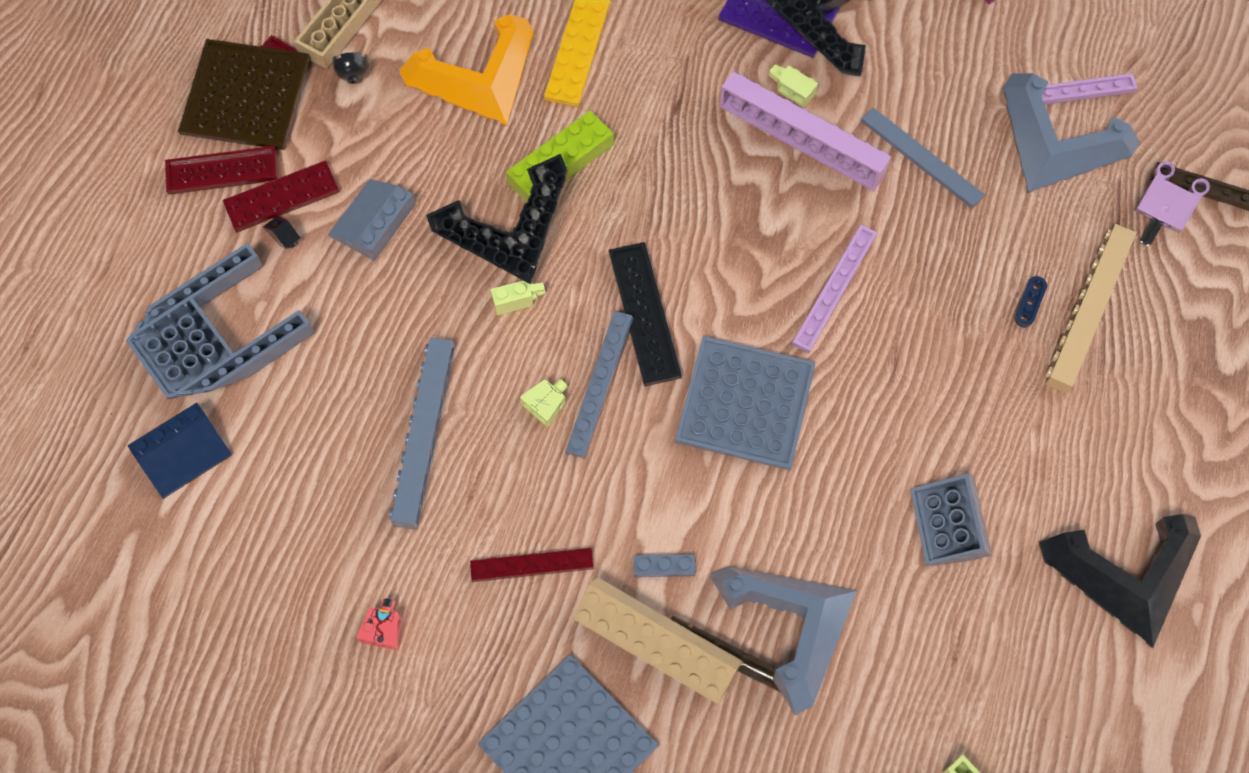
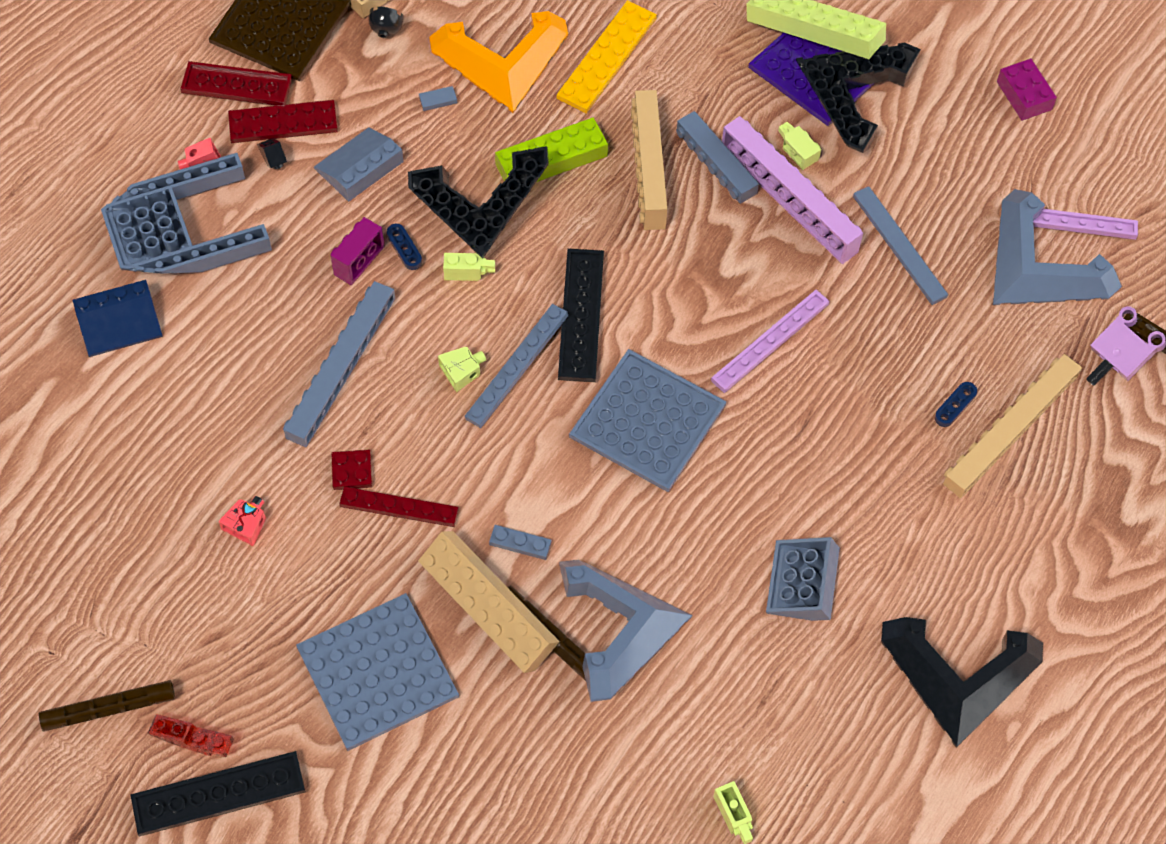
camera: 15 degrees right, 5 degrees down
(208, 254) = (199, 153): none -> coral torso
(402, 310) = (357, 250): none -> magenta brick
(428, 131) = (438, 98): none -> sand blue tile
(444, 286) = (404, 241): none -> dark blue plate
(471, 540) = (351, 469): none -> dark red plate
(659, 138) = (649, 160): none -> tan brick
(720, 117) = (717, 157): none -> sand blue brick

